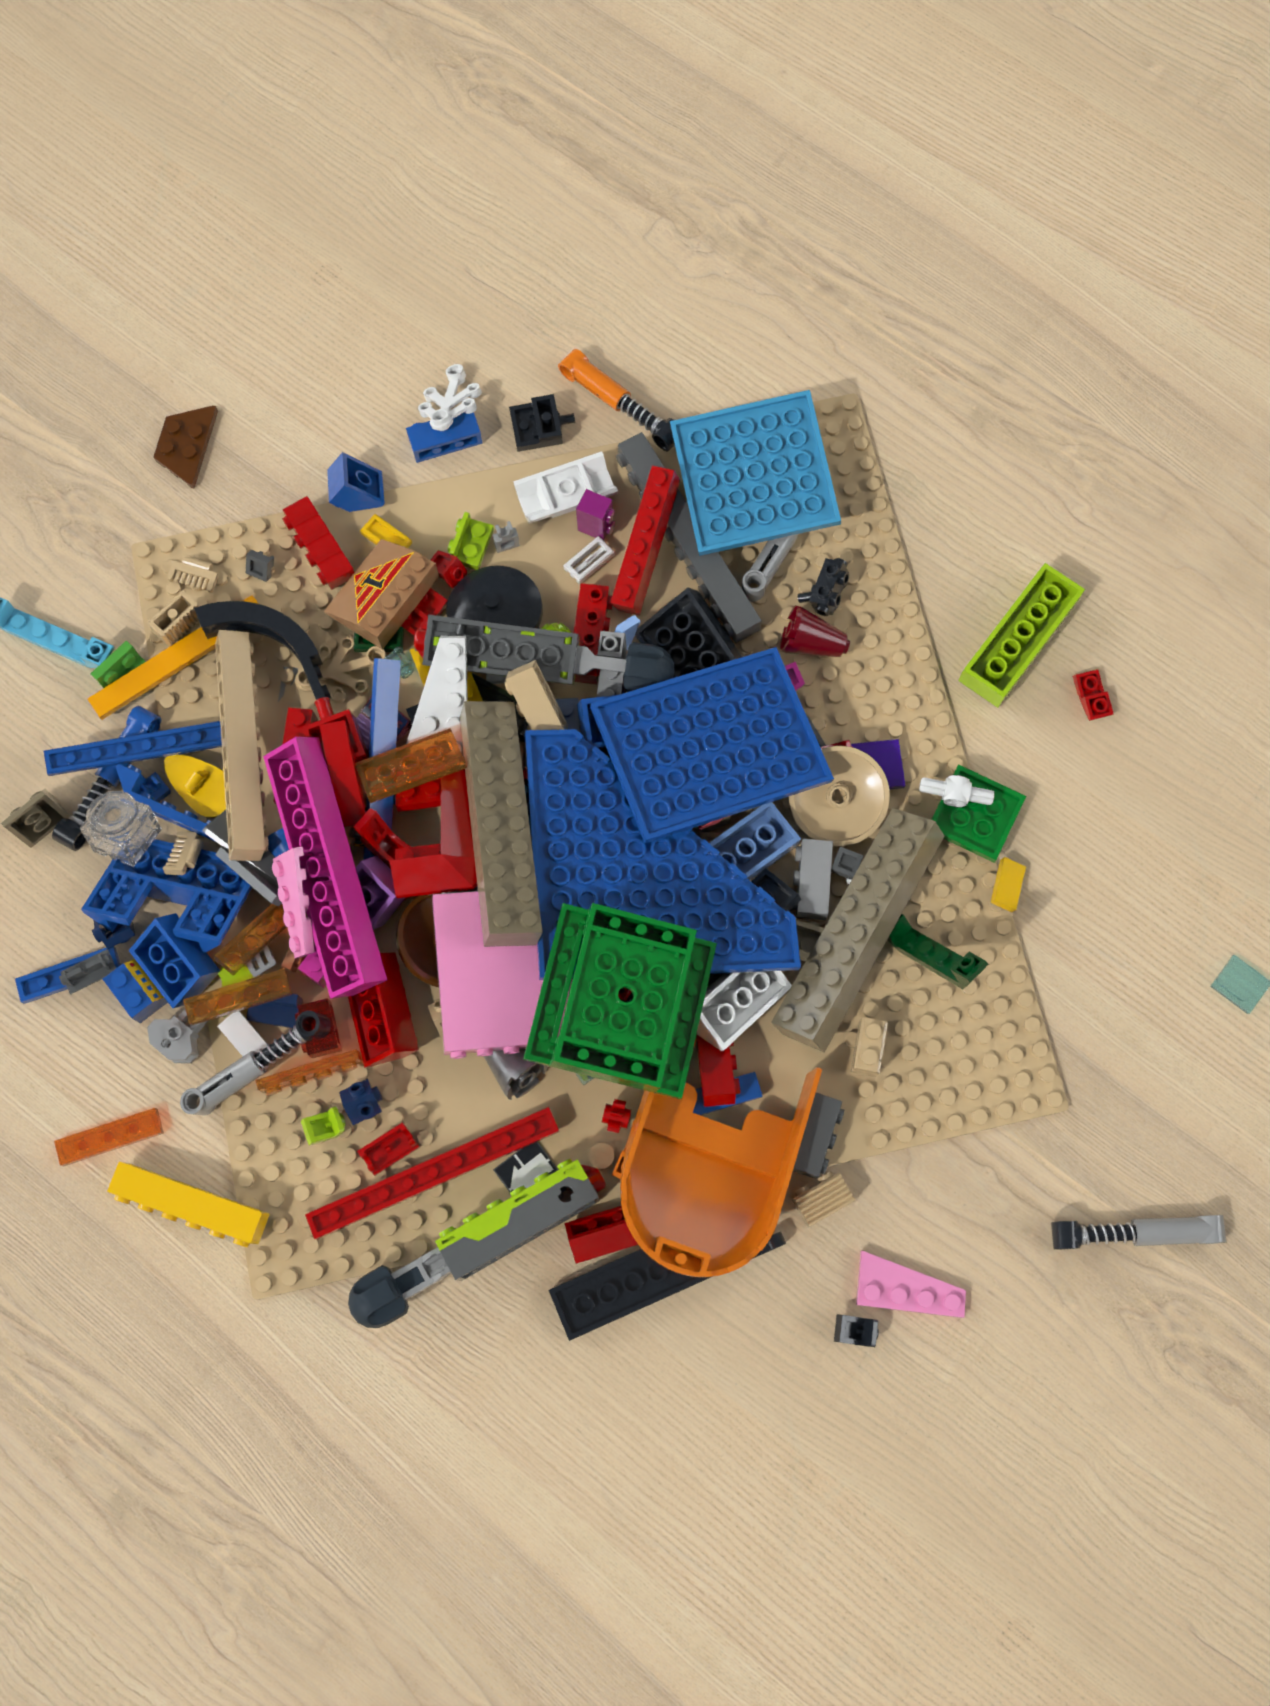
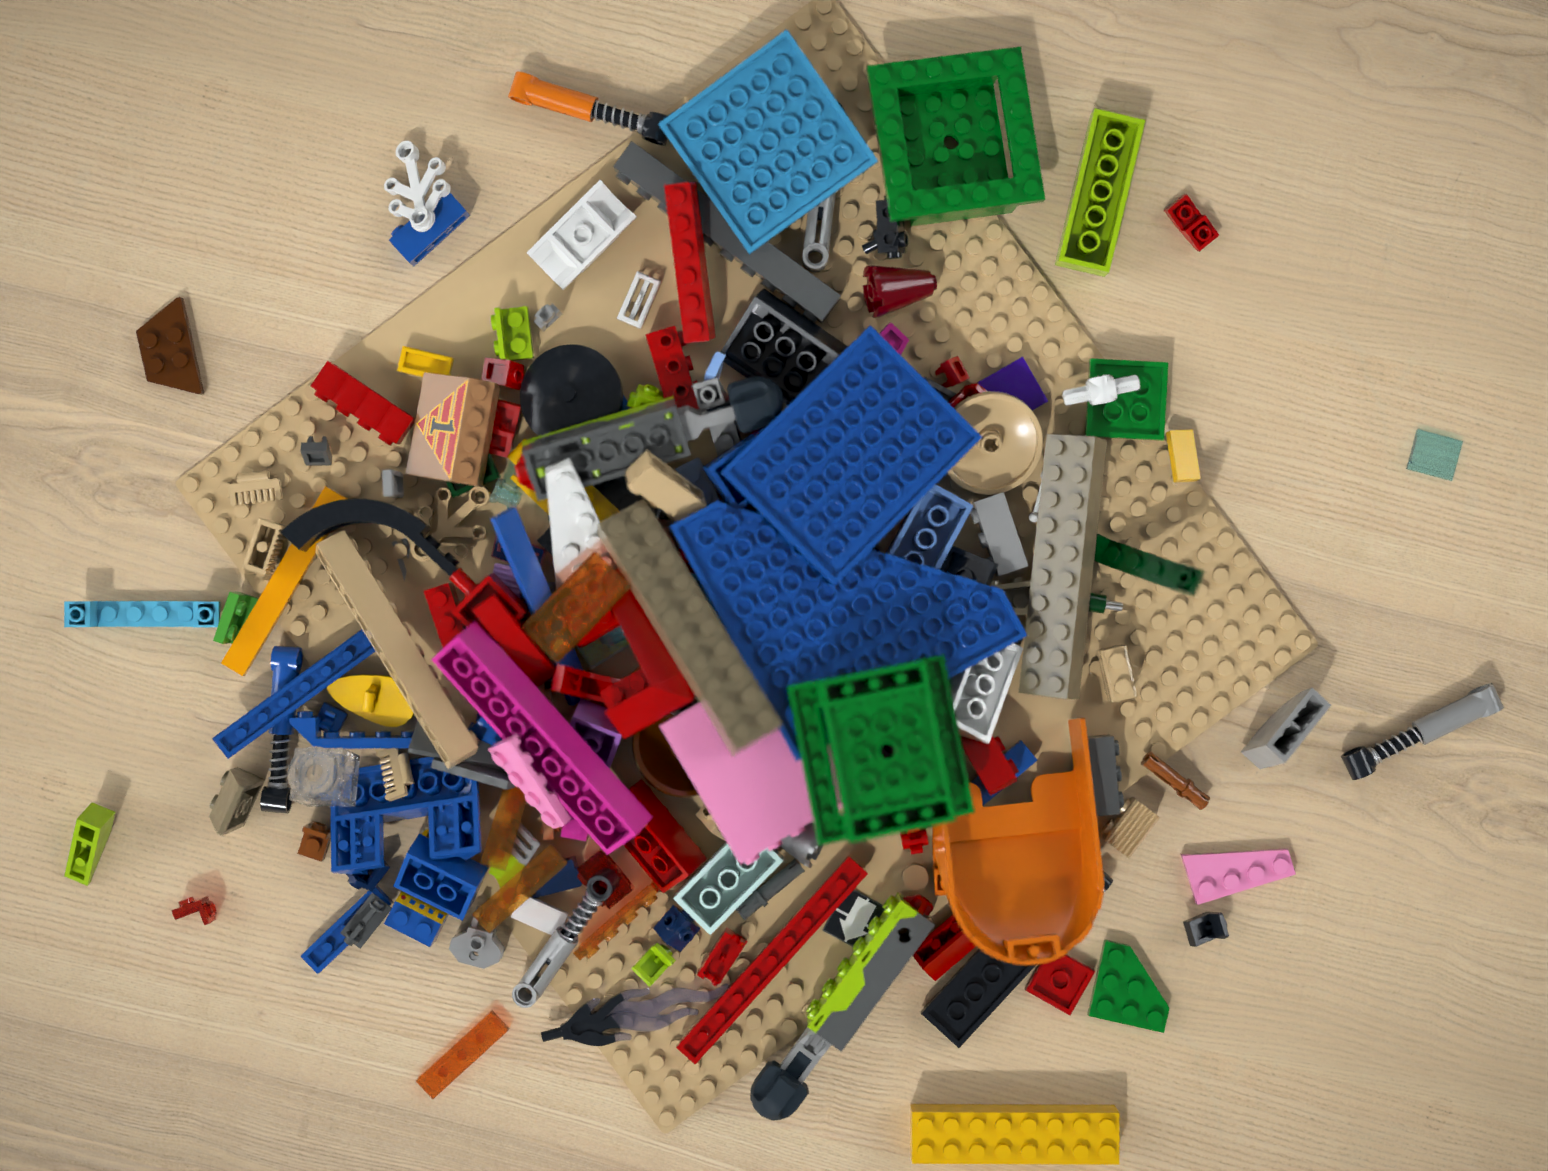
camera: 25 degrees left, 15 degrees up
(82, 885) = (315, 841): none -> dark orange bracket
(188, 1203) = (566, 1082): yellow brick -> none
(268, 1159) = (625, 1014): none -> piece
(308, 612) = (393, 484): none -> light grey tile
(354, 484) = (367, 324): blue slope -> none
(419, 827) = (604, 647): none -> clear light blue slope
(425, 1079) = (723, 885): none -> light aqua brick
(457, 1107) = (773, 886): none -> dark grey pin
(538, 423) = (518, 171): black plate -> none
(585, 1453) = (1014, 1134): none -> yellow brick
(595, 515) = (626, 254): magenta brick -> none
(694, 1320) = (1060, 982): none -> red tile
(754, 1360) = (1126, 991): none -> green plate
(833, 726) = (954, 372): none -> red tile
(846, 863) = (1024, 506): dark grey tile -> none
(877, 978) = (1099, 603): none -> dark green piece
(888, 1183) = (1183, 786): none -> dark orange pin
(922, 506) = (954, 97): none -> green piece
(1008, 1167) = (1286, 729): none -> light grey brick

